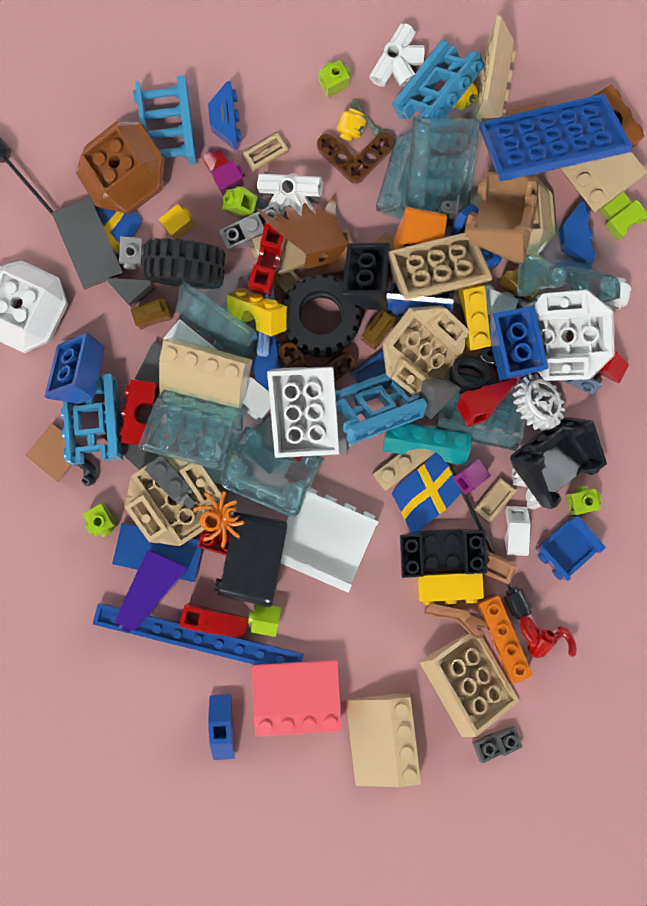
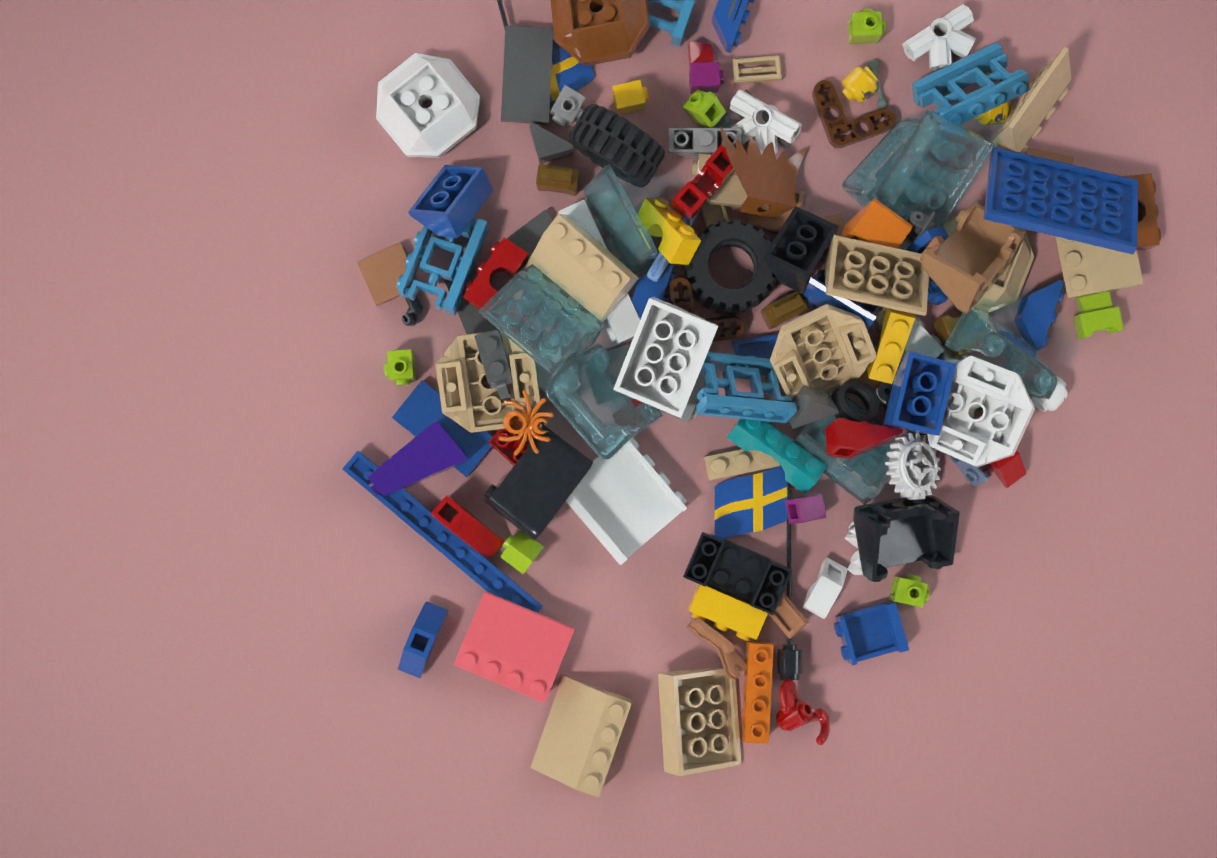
camera: 20 degrees right, 0 degrees up
(495, 500) = (818, 545): tan tile -> none
(496, 744) = (696, 797): dark grey slope -> none

